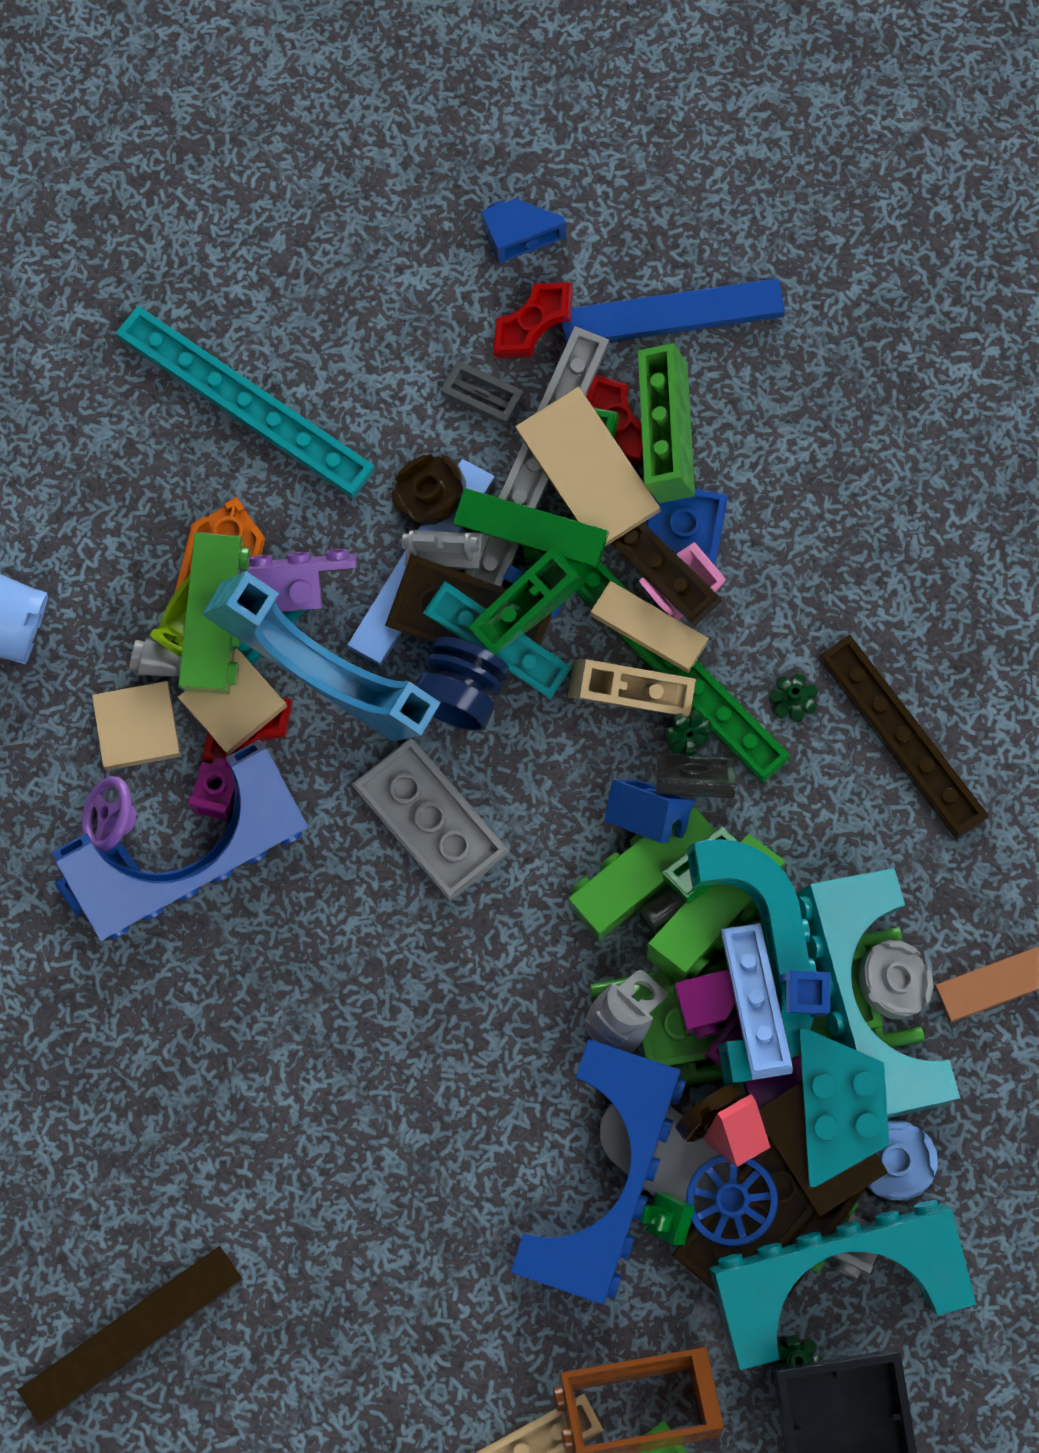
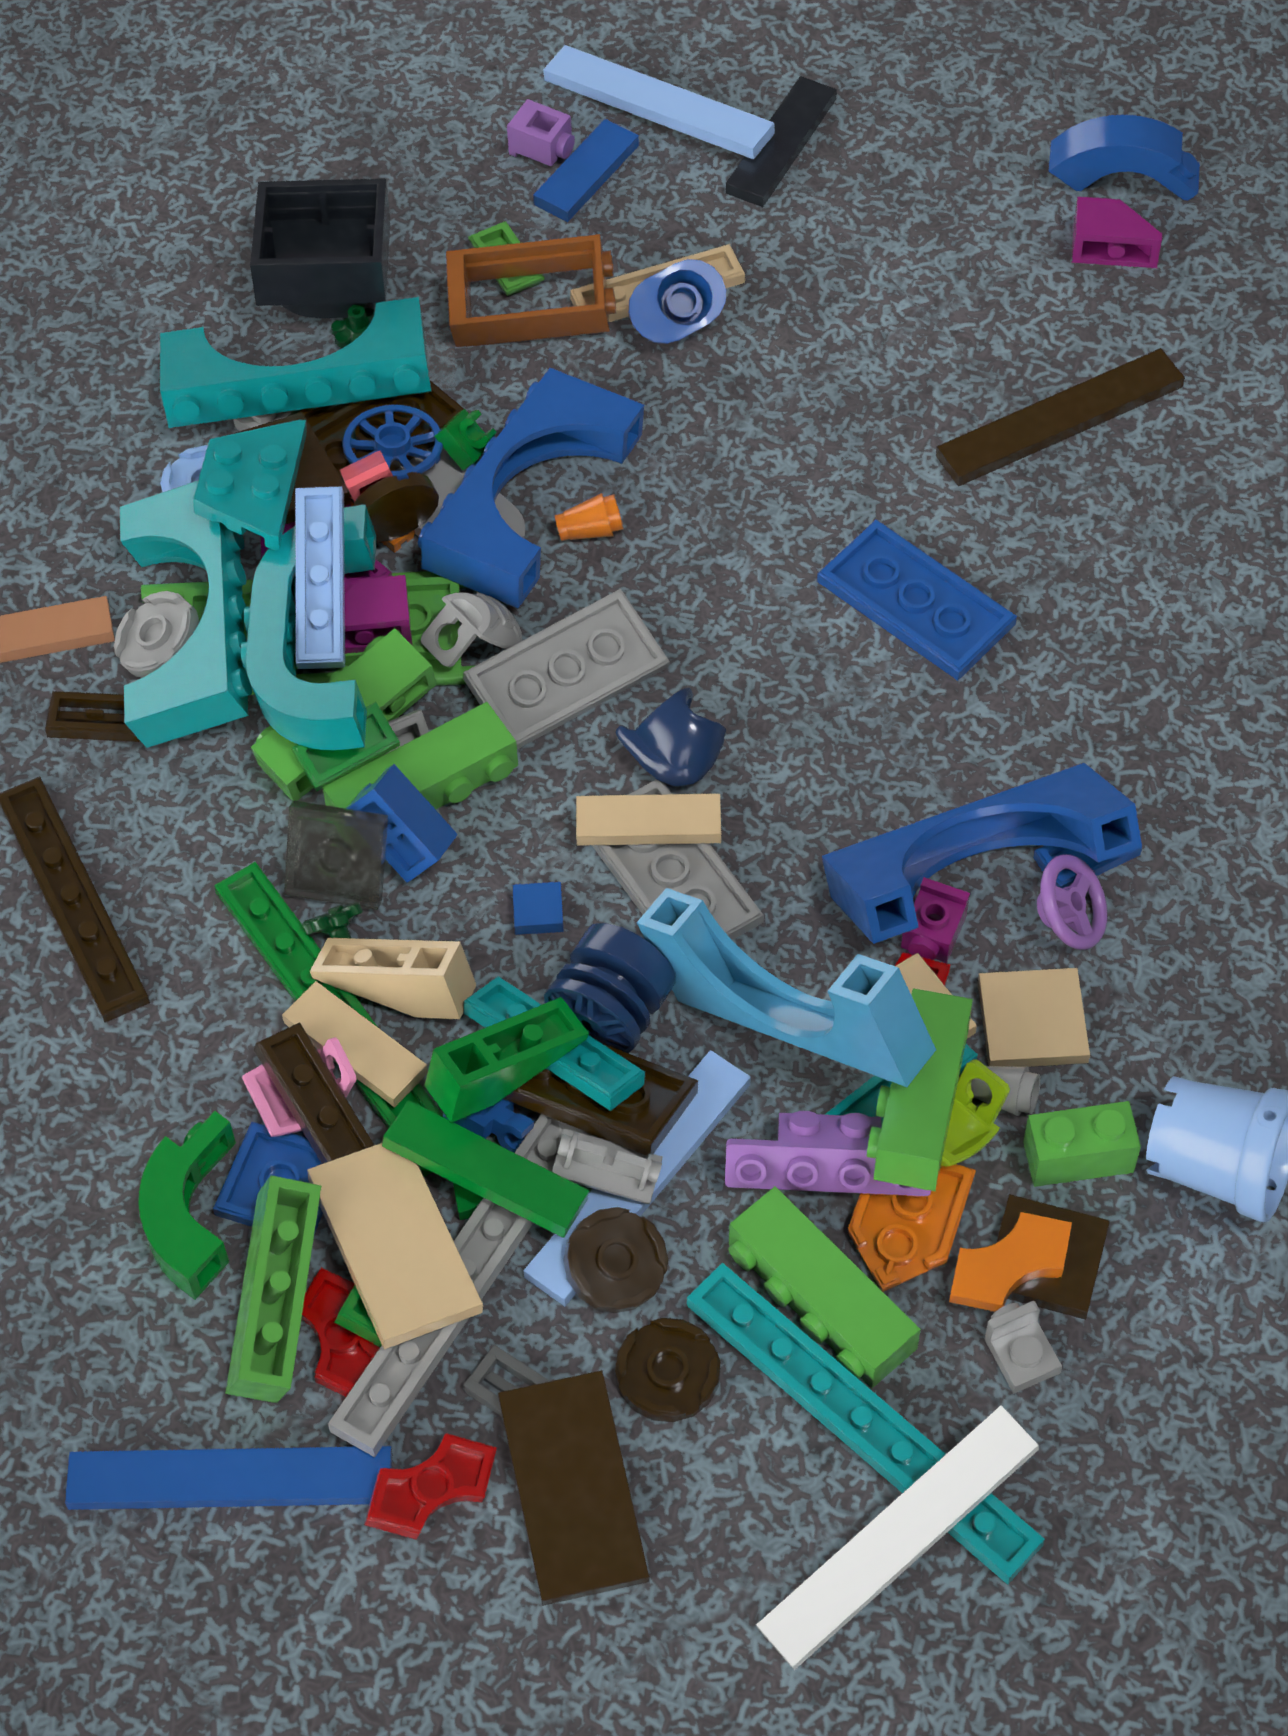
camera: 175 degrees left, 15 degrees down
(96, 615) = (1081, 1143): none -> bright green brick
(120, 538) = (1073, 1290): none -> dark brown tile
(131, 530) = (1028, 1252): none -> orange tile
(136, 467) = (1021, 1346): none -> light grey bracket
(211, 320) = (897, 1537): none -> white tile
(250, 1112) = (917, 599): none -> blue tile
(279, 487) = (822, 1288): none -> bright green brick
(377, 434) = (673, 1386): none -> dark brown tile
(437, 333) = (573, 1488): none -> dark brown tile
(445, 922) = (675, 741): none -> dark blue piece
(451, 849) = (648, 819): none -> tan tile
(496, 1408) = (677, 301): none -> blue piece
(520, 228) = (425, 1626): blue slope -> none
(530, 771) = (537, 908): none -> blue tile
(541, 994) = (567, 668): none -> light grey tile
(544, 1155) = (590, 519): none -> orange cone
(753, 468) = (178, 1242): none -> green arch
(793, 697) = (192, 956): dark green plant -> none
(807, 992) = (258, 559): blue panel -> none
(931, 920) = (92, 723): none -> dark brown tile

